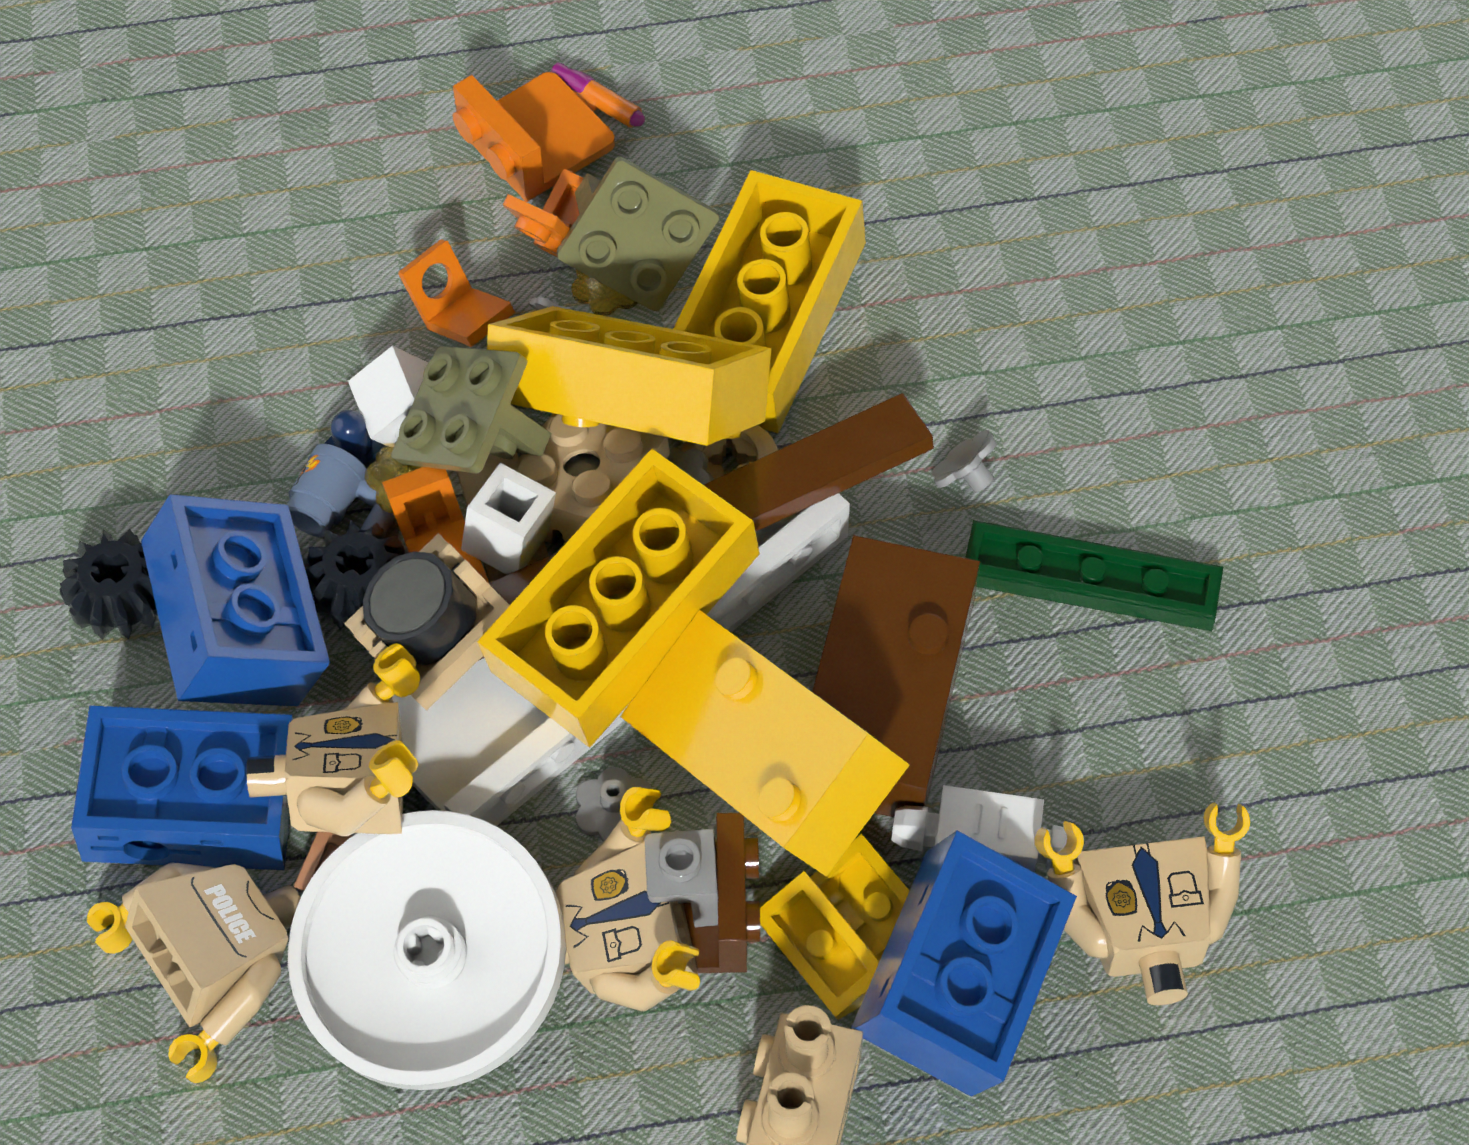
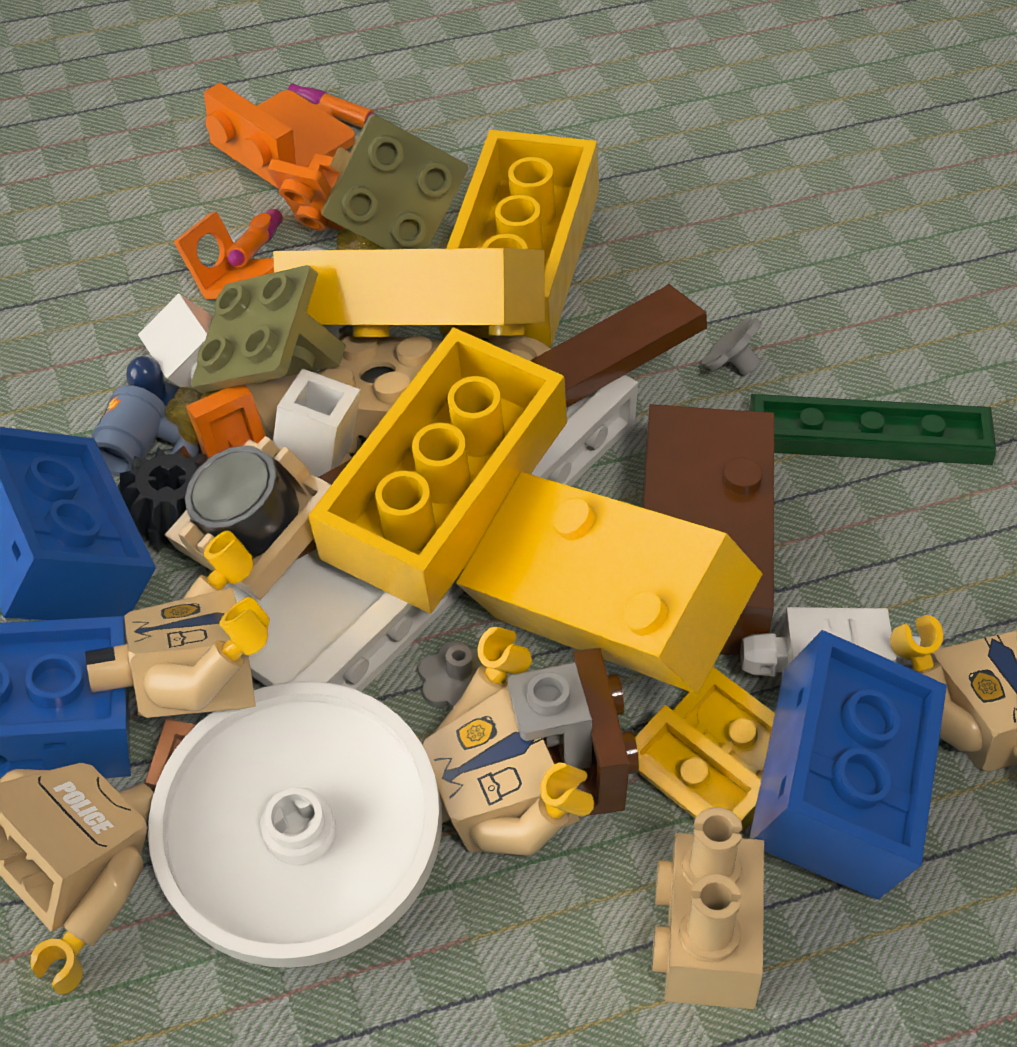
camera: 10 degrees left, 10 degrees down
(494, 257) = (260, 232): none -> orange piece

